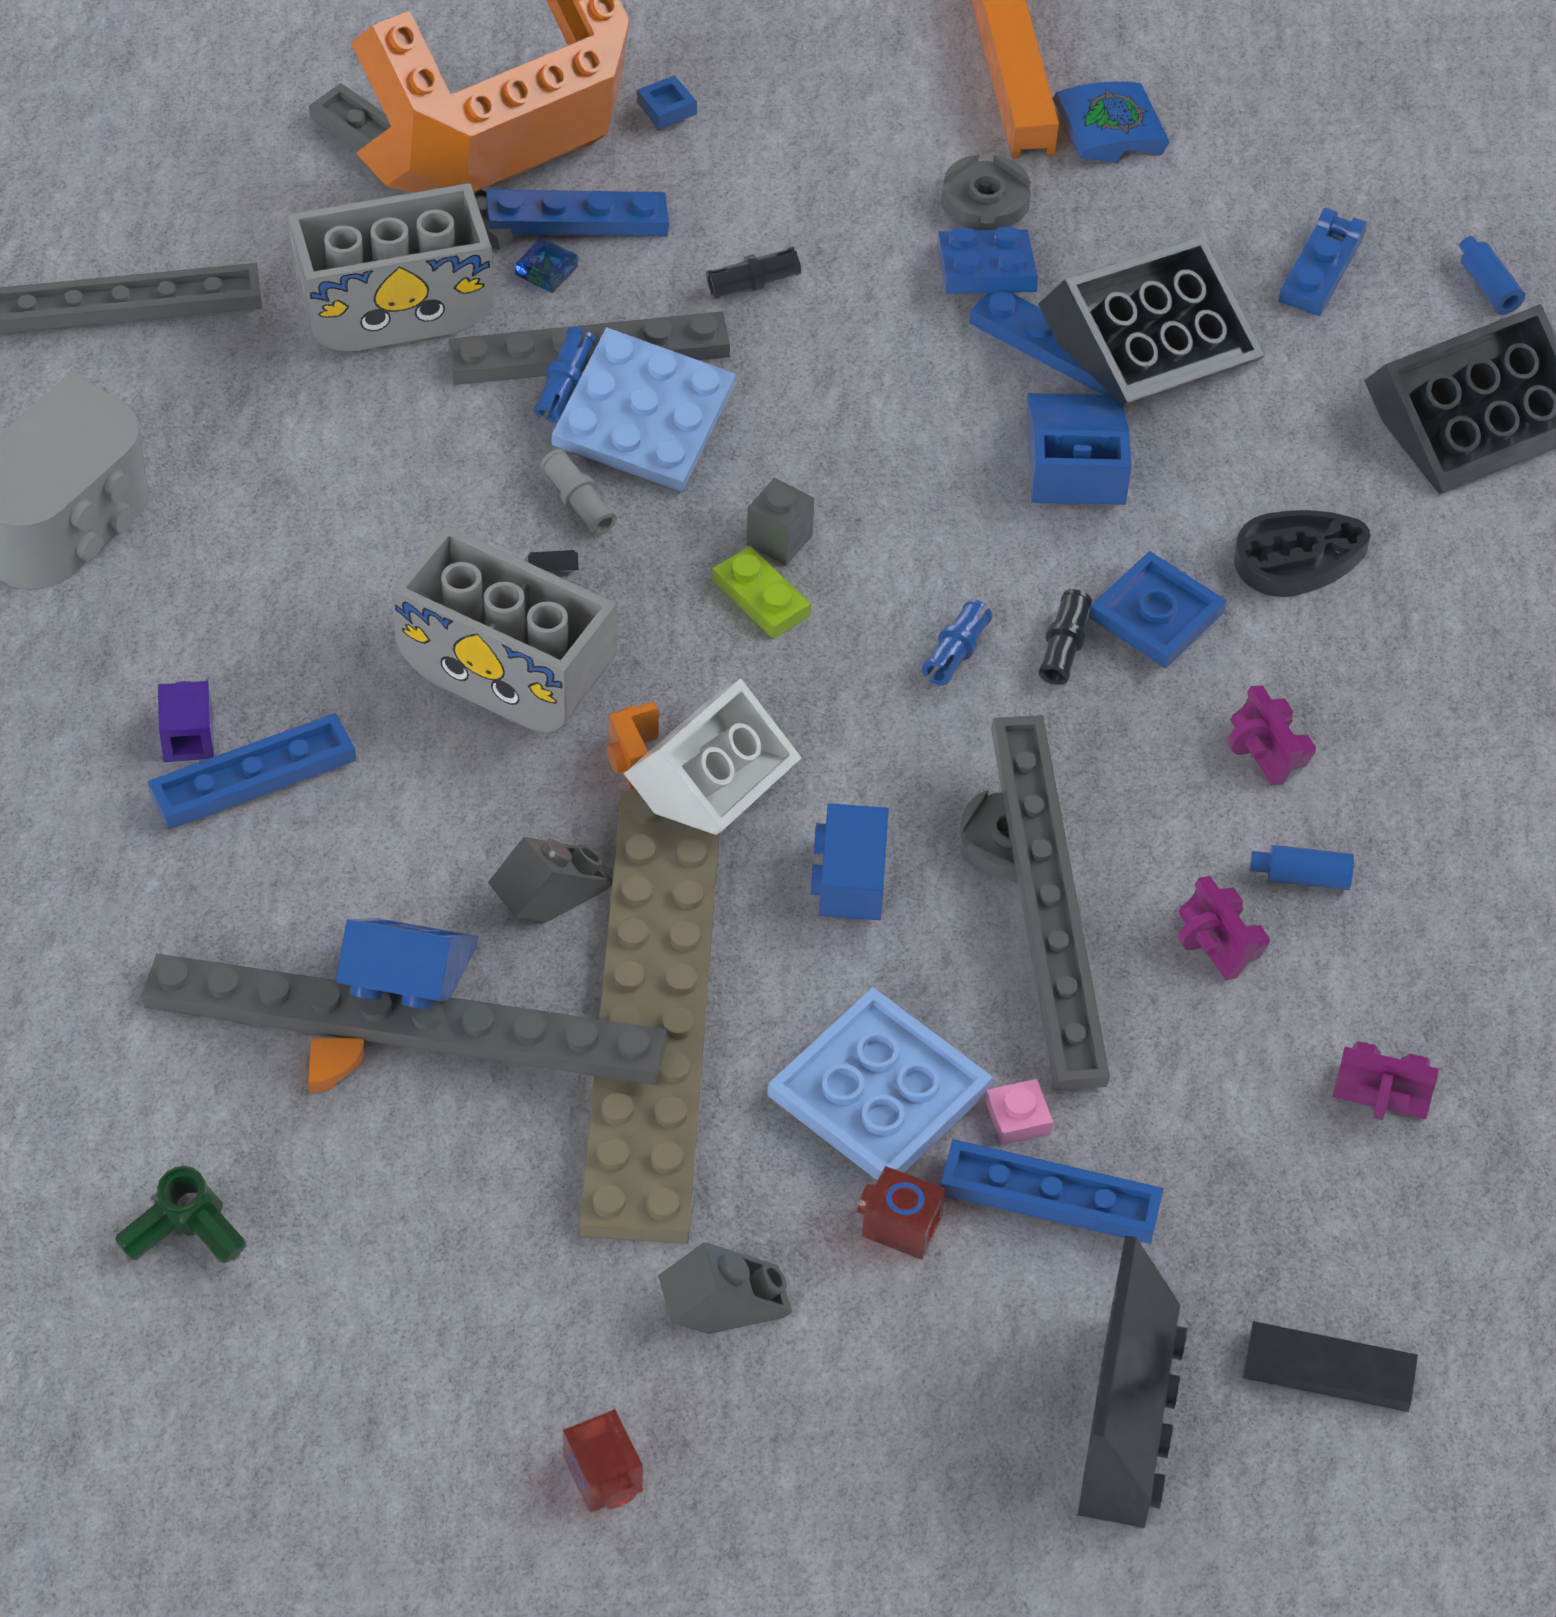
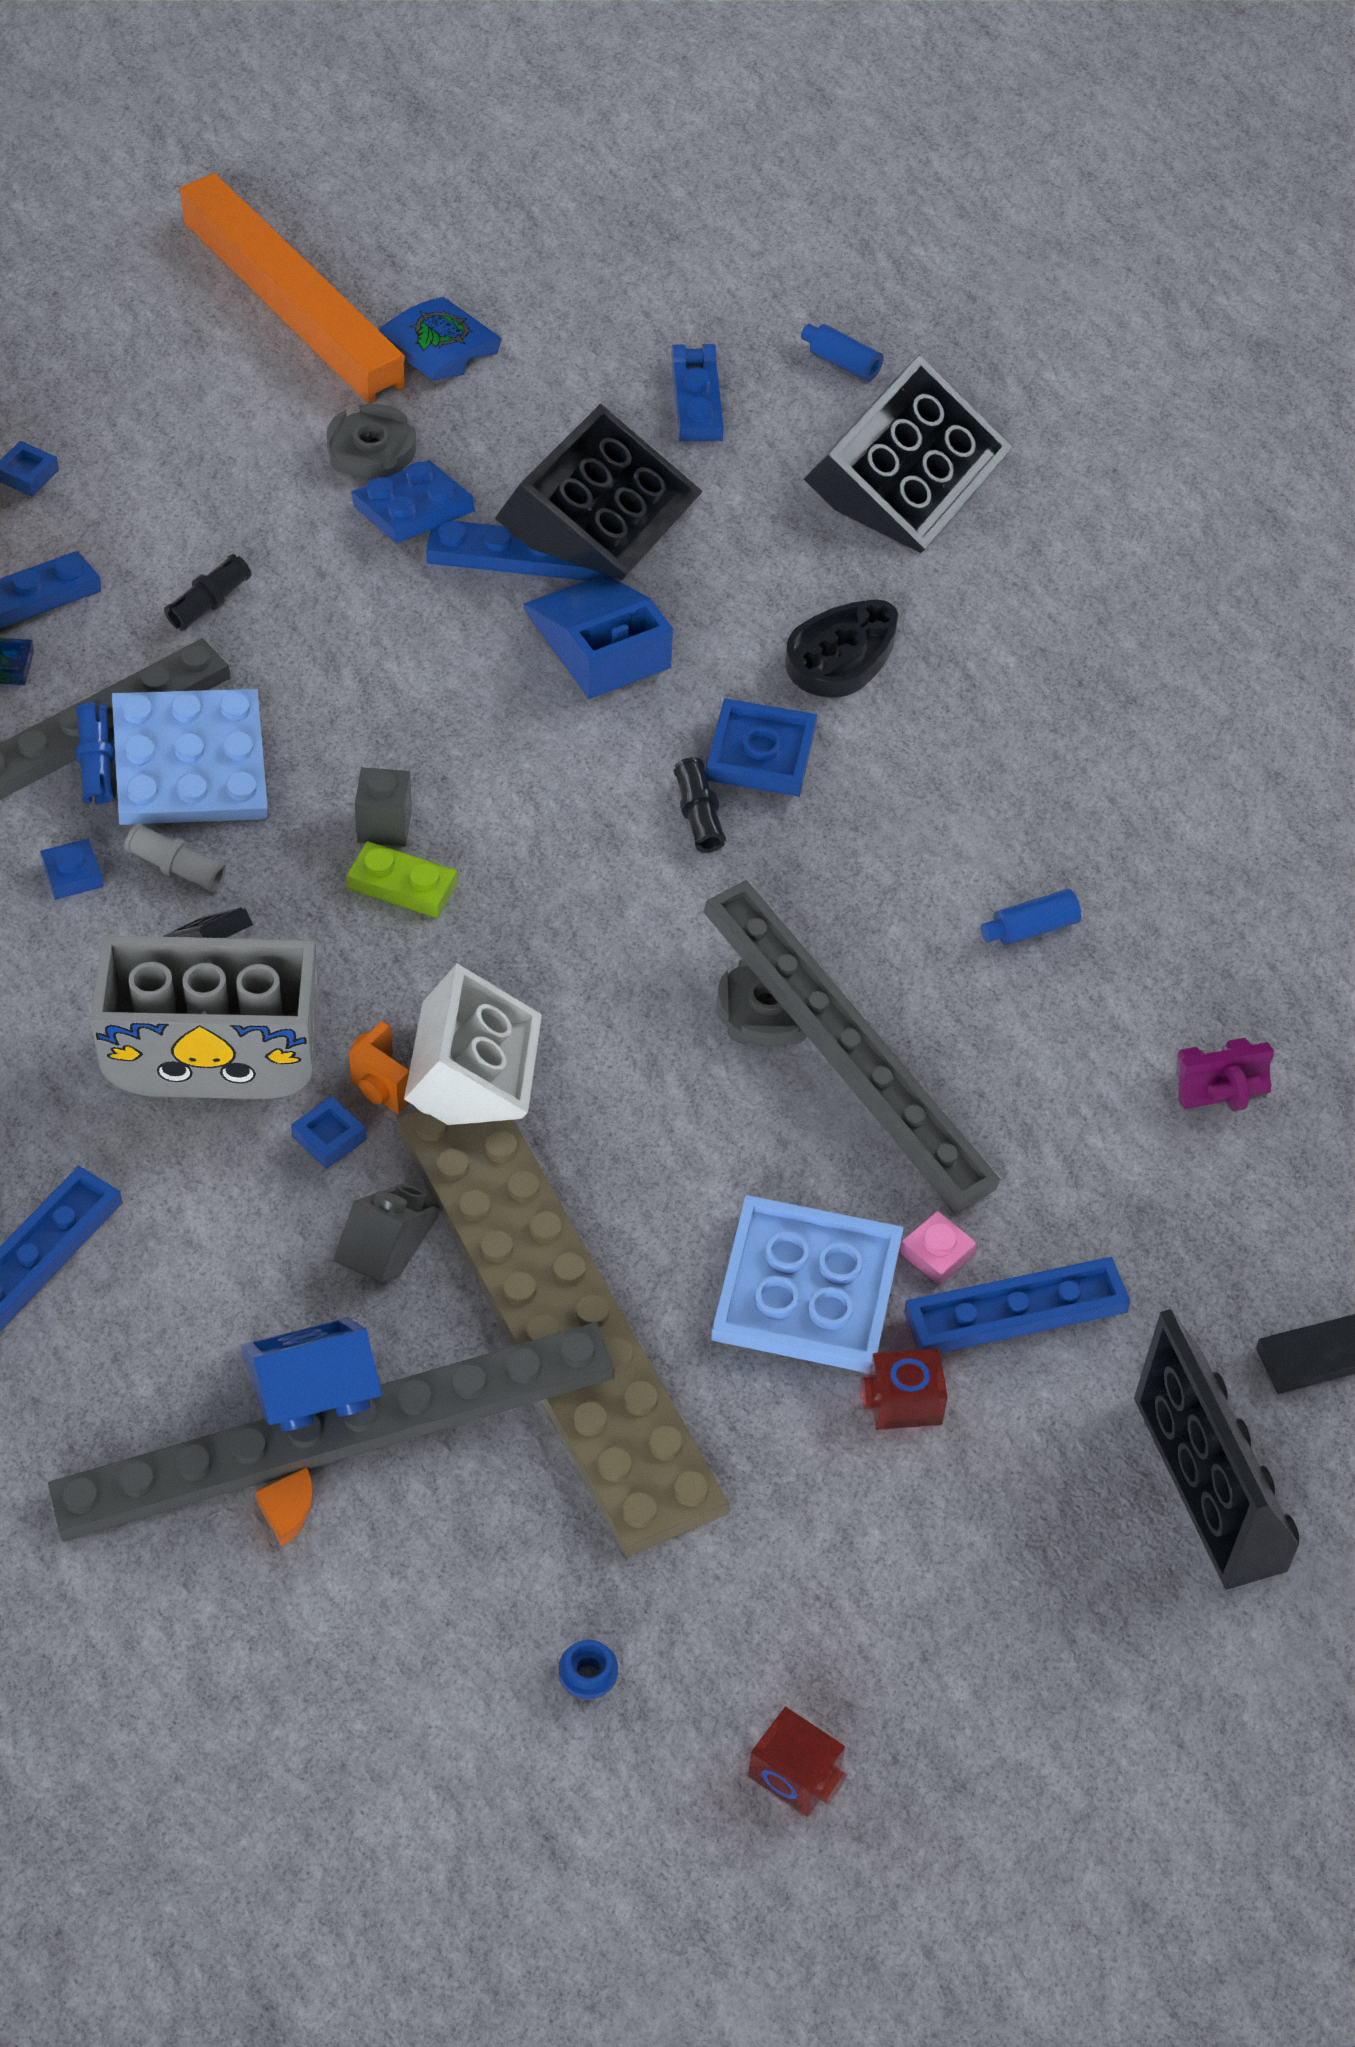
camera: 30 degrees left, 0 degrees up
(198, 1218) = (227, 1739): dark green axle -> none
(486, 1293) = (588, 1654): none -> blue plate
(489, 466) = (71, 868): none -> blue plate
(557, 777) = (328, 1132): none -> blue plate
(723, 1290) = (798, 1542): dark grey slope -> none
(853, 861) = (654, 1088): blue brick -> none
(957, 642) = (609, 850): blue pin -> none
(1215, 925) = (1001, 1004): magenta hips -> none
(1264, 731) = (928, 817): magenta hips -> none

